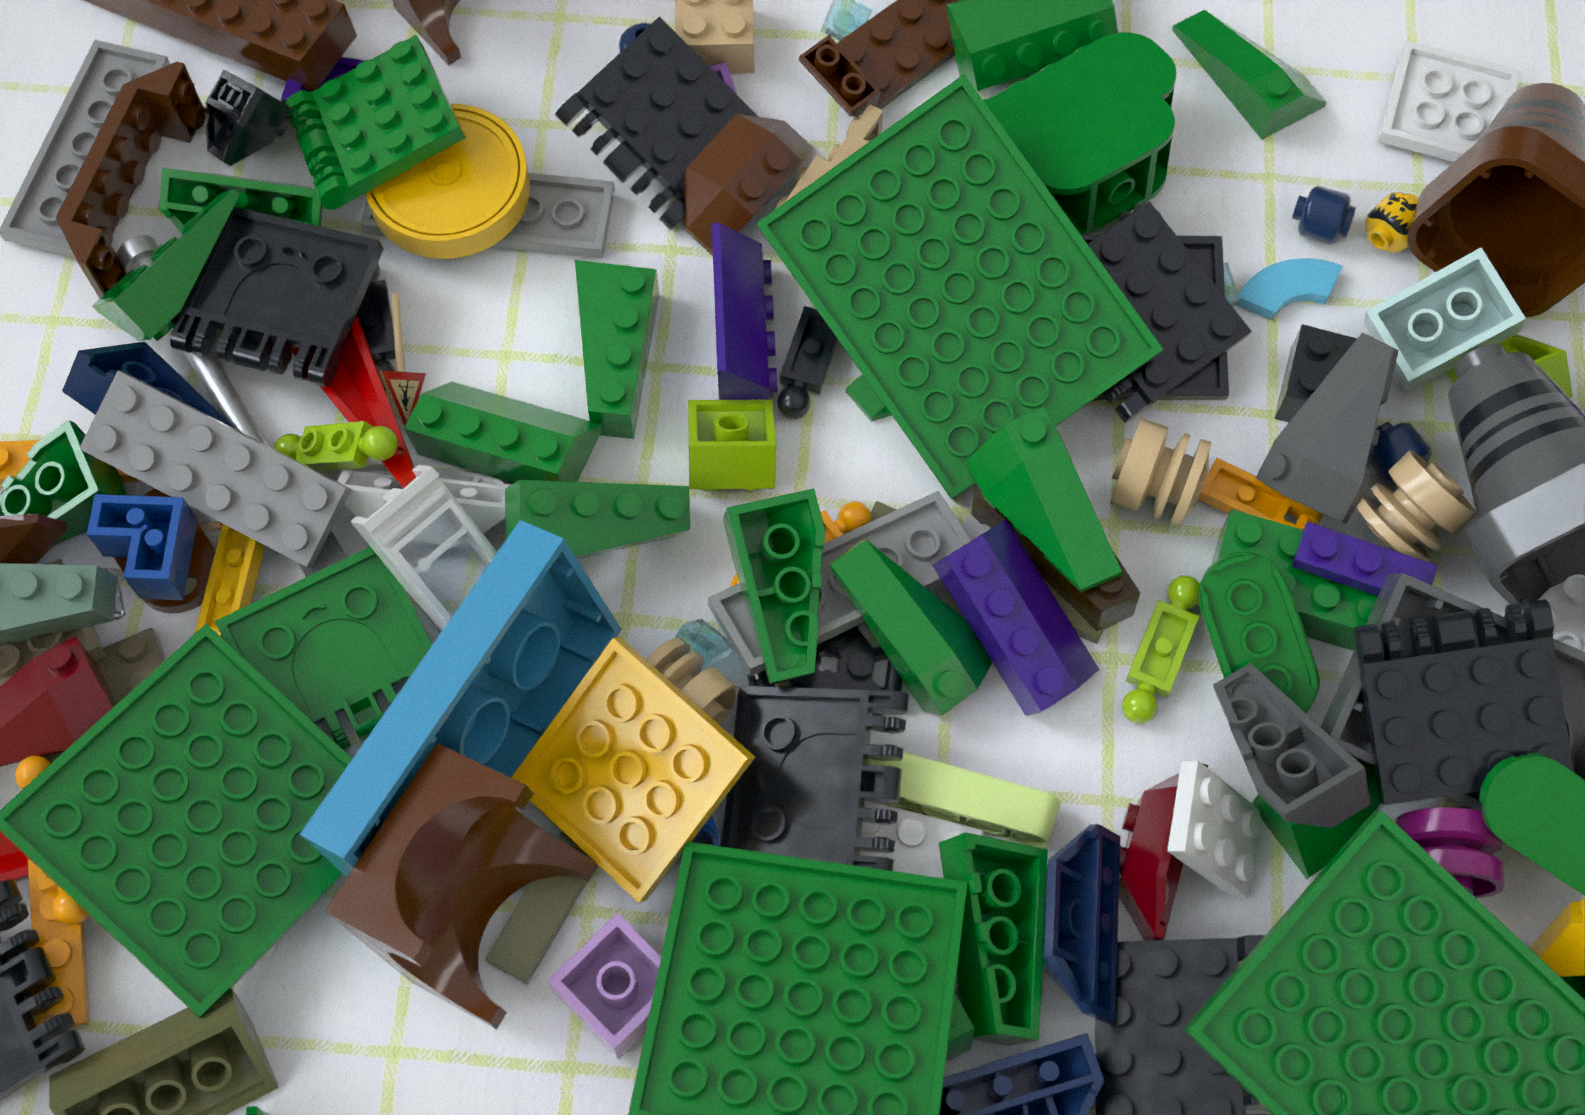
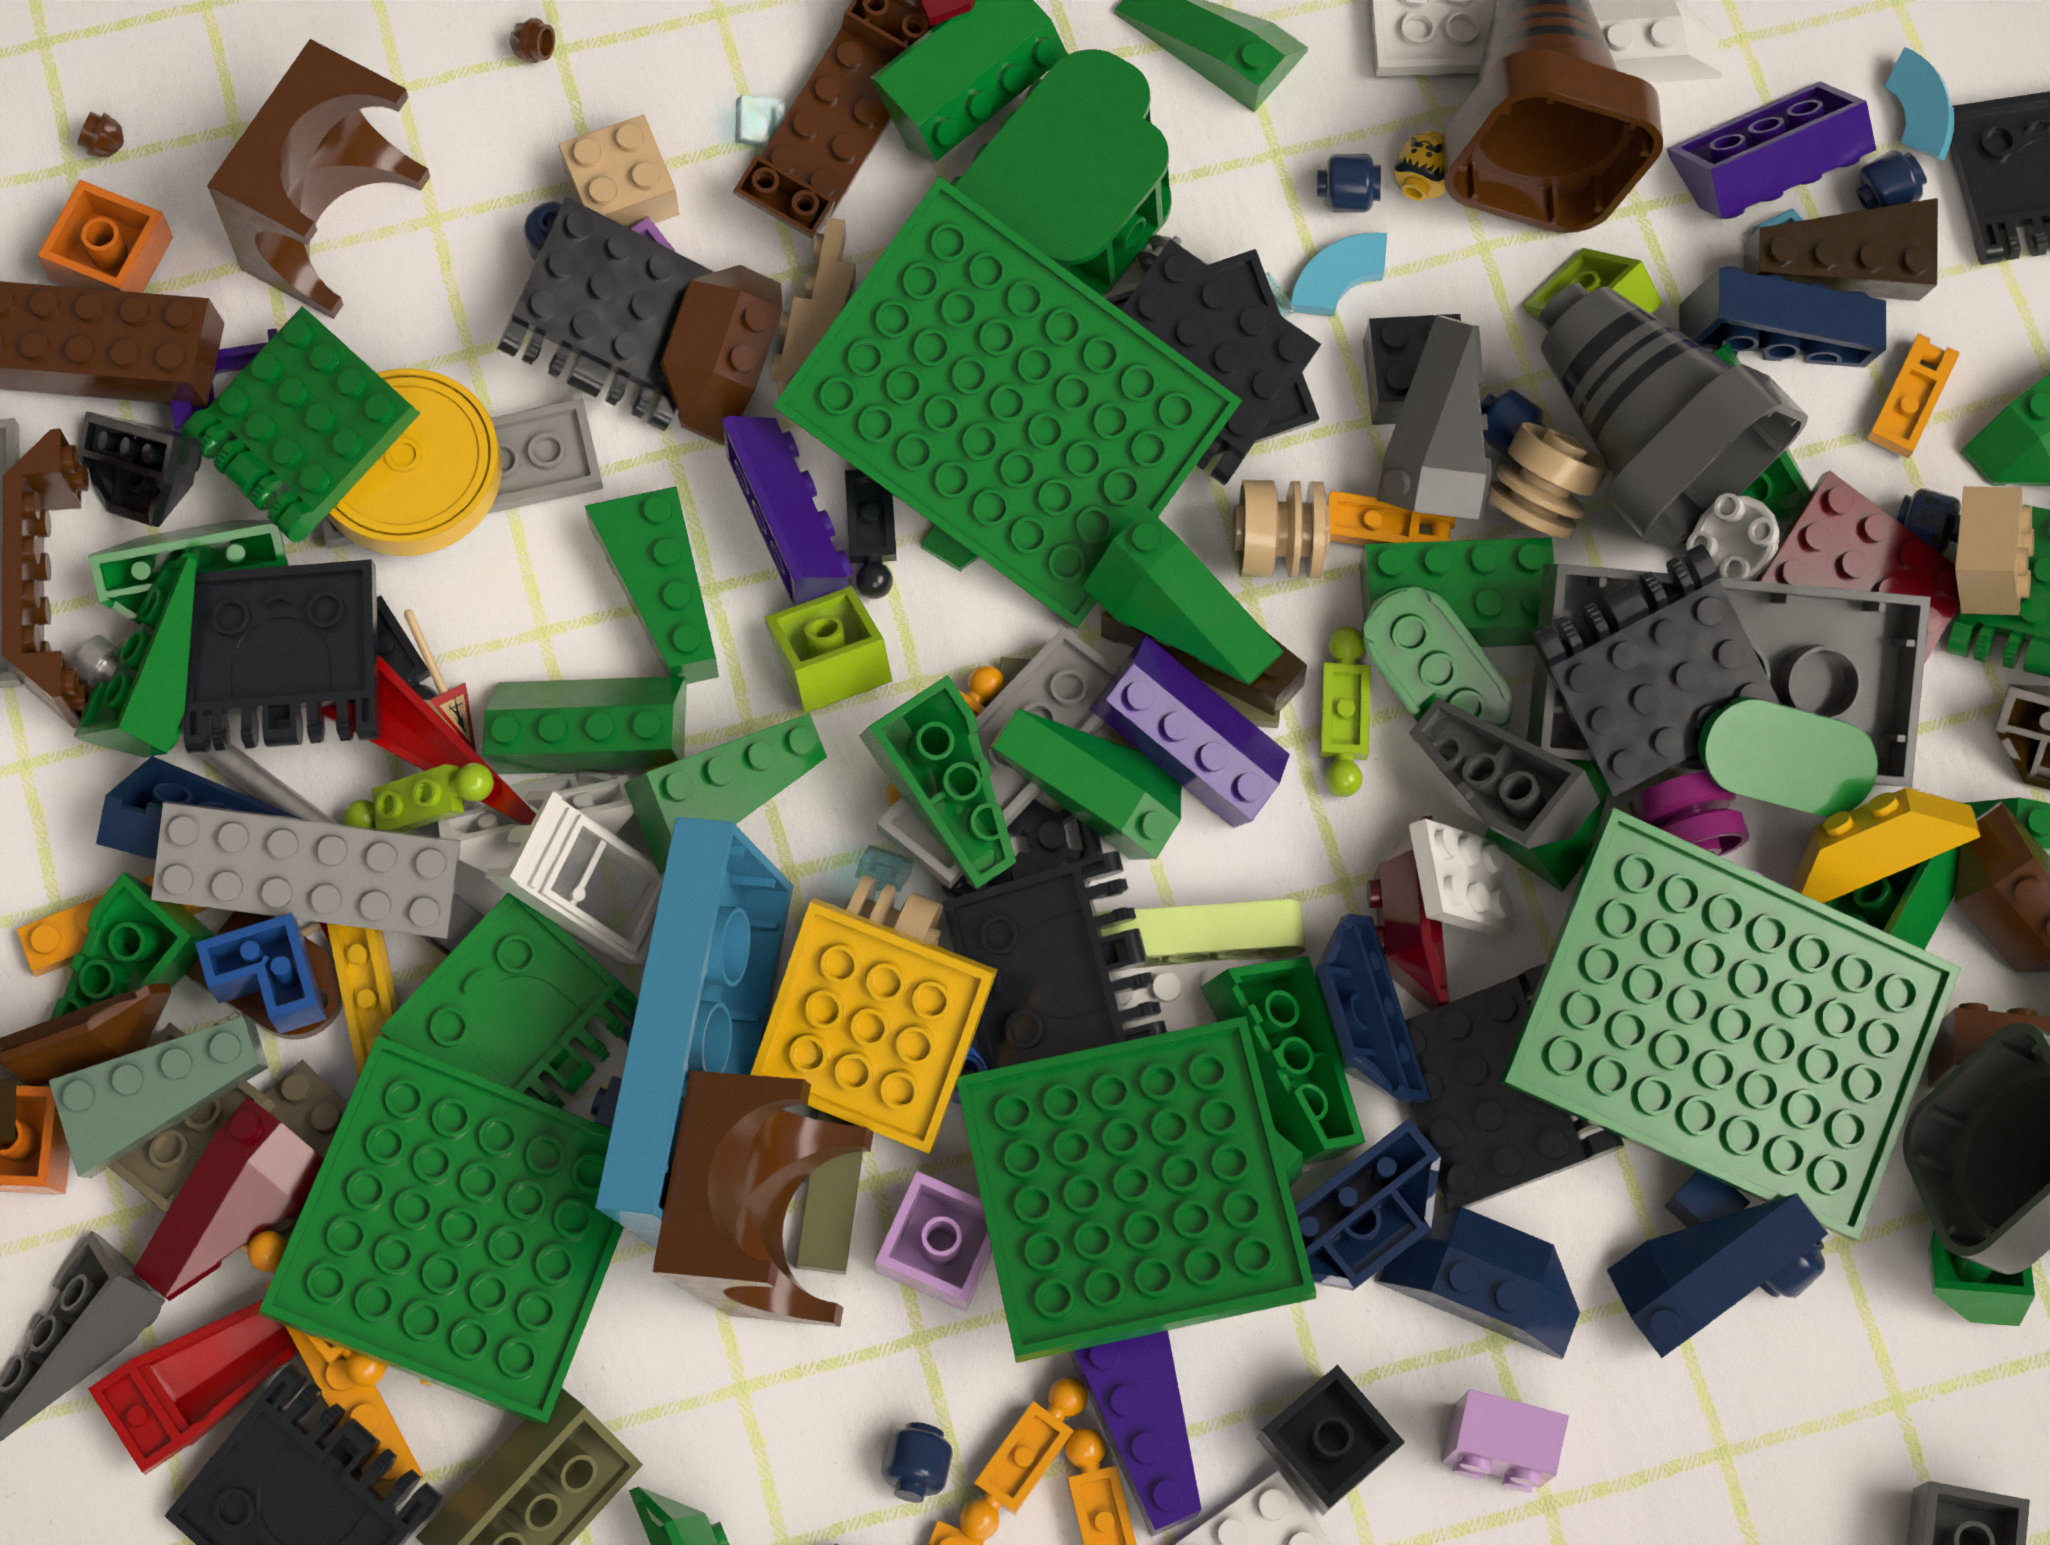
camera: 25 degrees left, 5 degrees up
(1354, 560) = (1508, 558): dark purple plate -> none
(1445, 318) = (1510, 265): light aqua brick -> none

